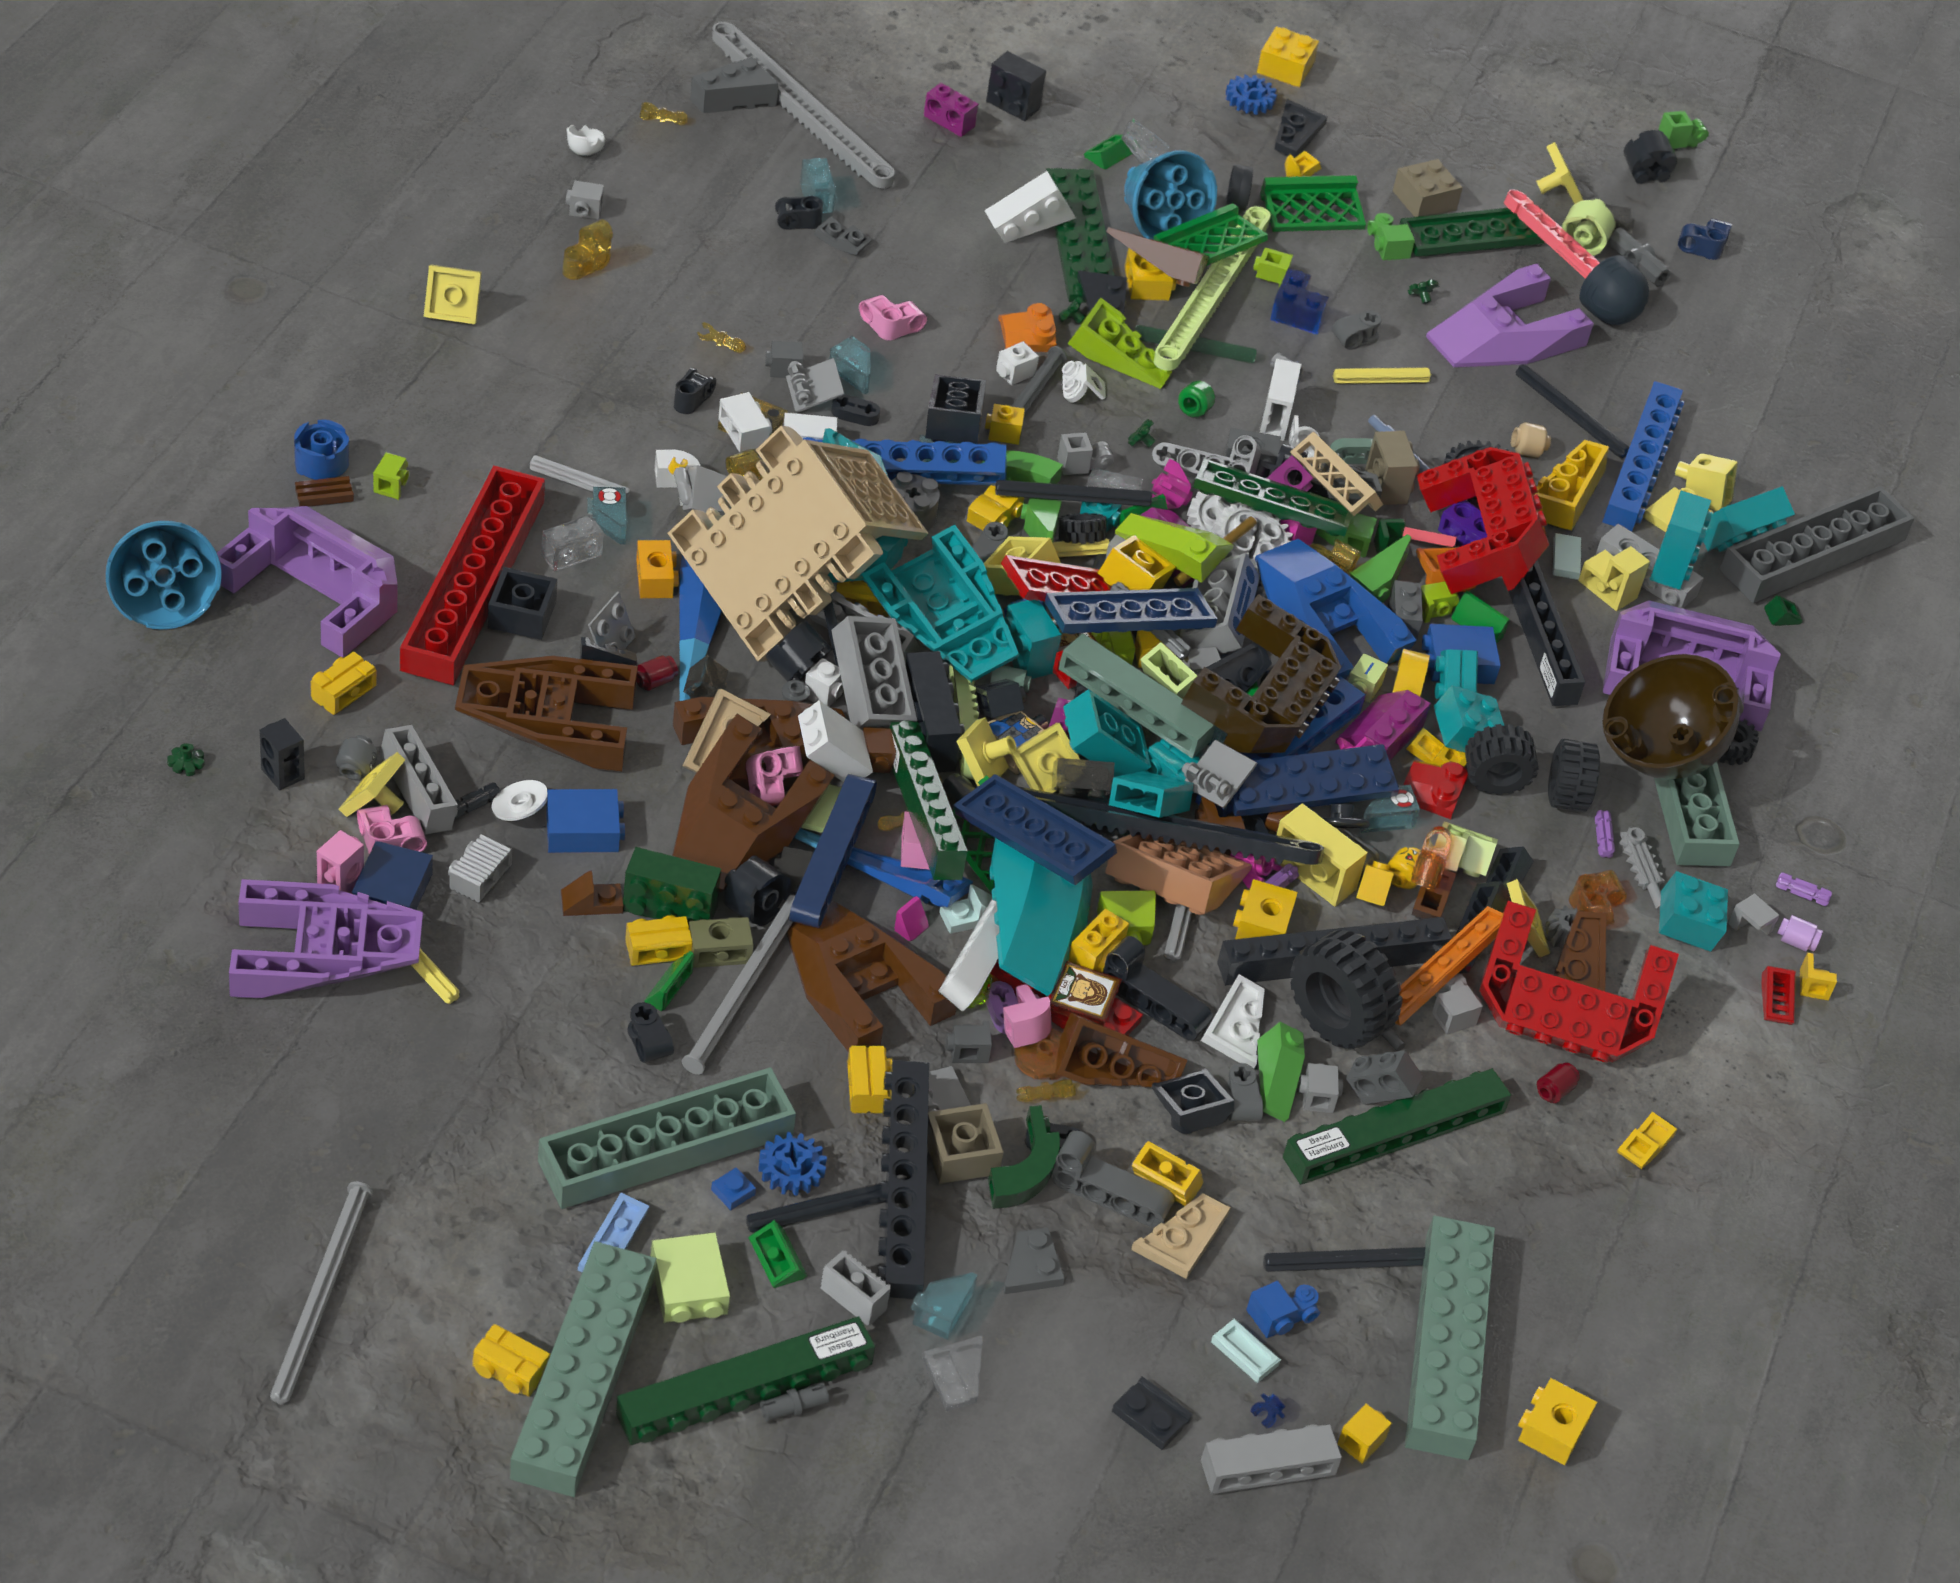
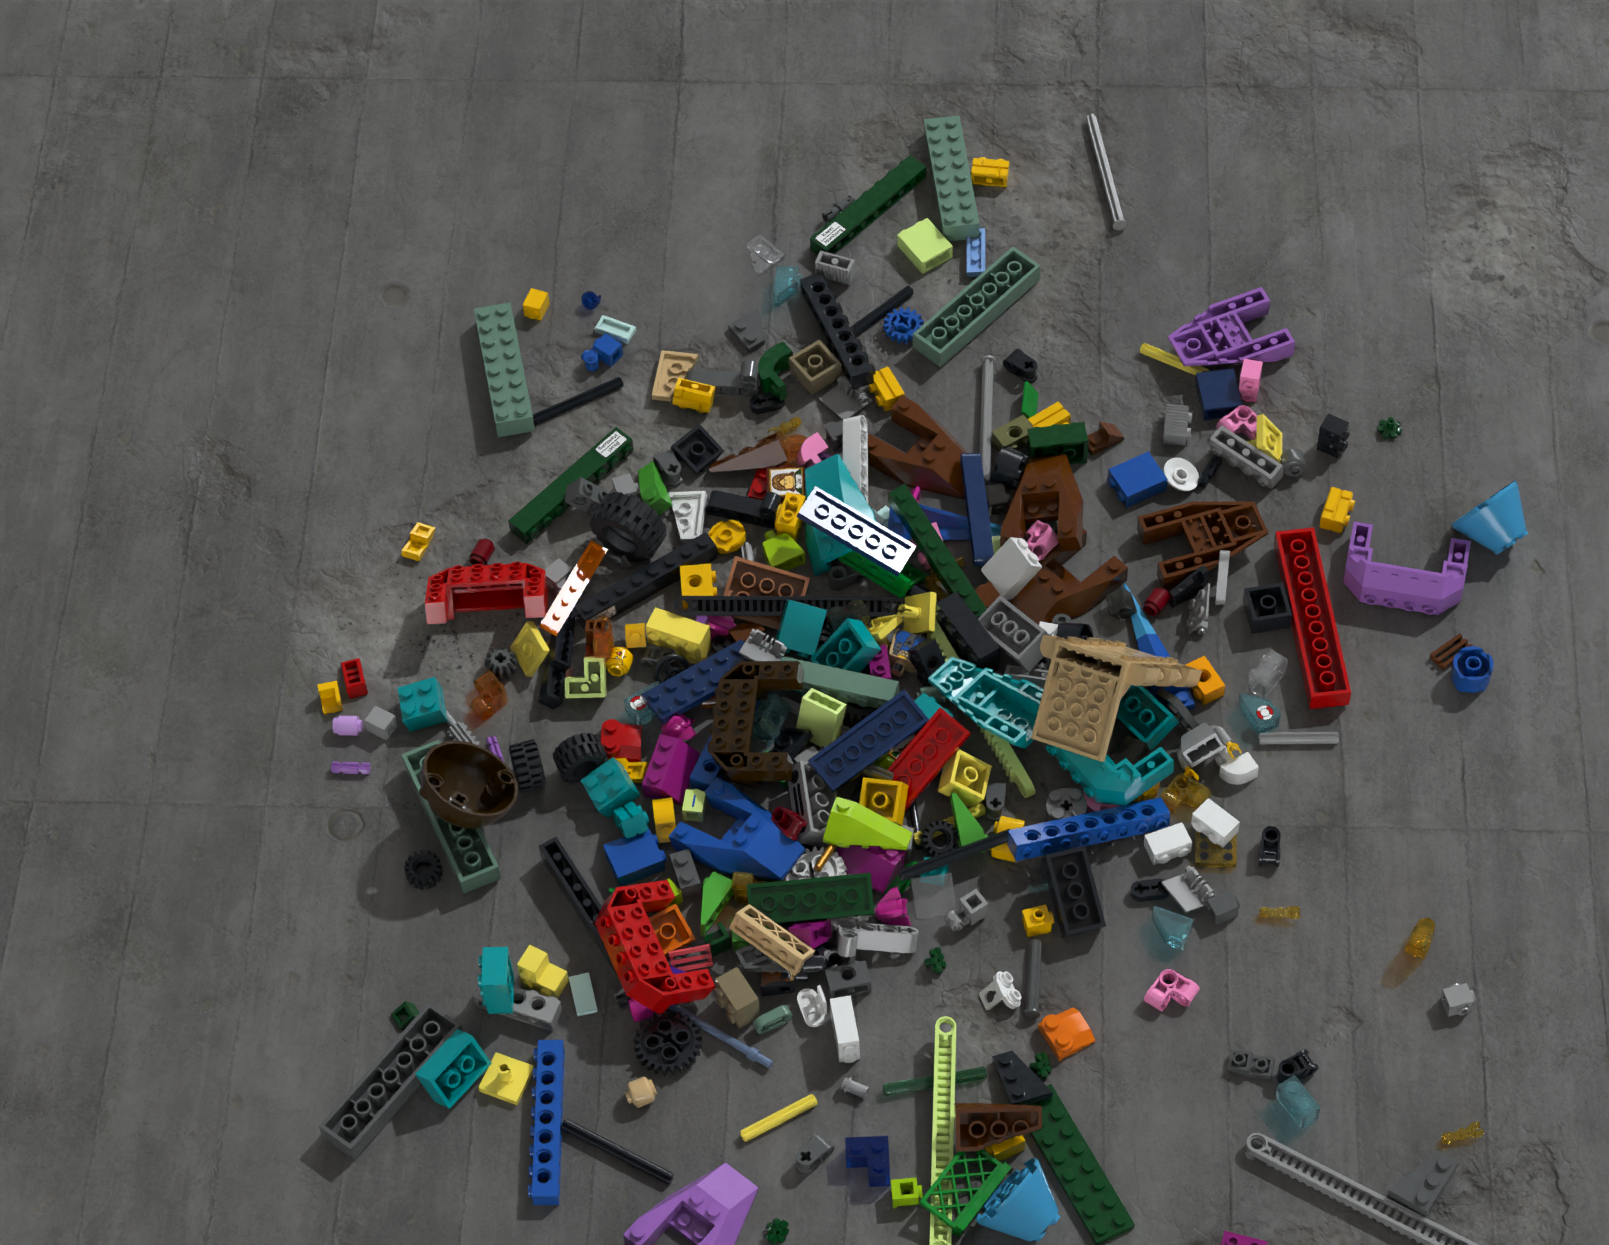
camera: 170 degrees right, 10 degrees up
(390, 476) = (1416, 676): lime brick -> none
(452, 294) = (1483, 846): light yellow tile -> none
(559, 642) = (1222, 577): none -> light grey beam
(585, 141) = (1499, 1063): white hair -> none
(718, 718) = (1087, 562): tan wing -> none
(733, 1188) = (929, 305): blue plate -> none
(777, 1255) = (885, 281): green slope -> none
(1017, 363) = (1056, 986): white brick -> none
(1030, 209) = (1116, 1144): white wedge -> none
(1032, 468) = (1006, 882): bright green slope -> none
(1112, 343) = (992, 1037): lime wedge -> none
(1152, 1413) = (653, 278): black plate -> none
(1196, 399) = (909, 1013): green head -> none
(1196, 971) = (728, 536): none -> yellow tile
(1267, 579) = (788, 822): none -> dark red piece
(1270, 1458) = (581, 268): light grey brick -> none
(1542, 1425) = (432, 346): yellow brick -> none
(1572, 484) = (599, 1045): yellow wedge -> none
(1585, 951) = (487, 634): reddish brown wing -> none
(1665, 630) = (466, 934): medium lavender wedge -> none
(1710, 478) = (491, 1109): light yellow torso -> none

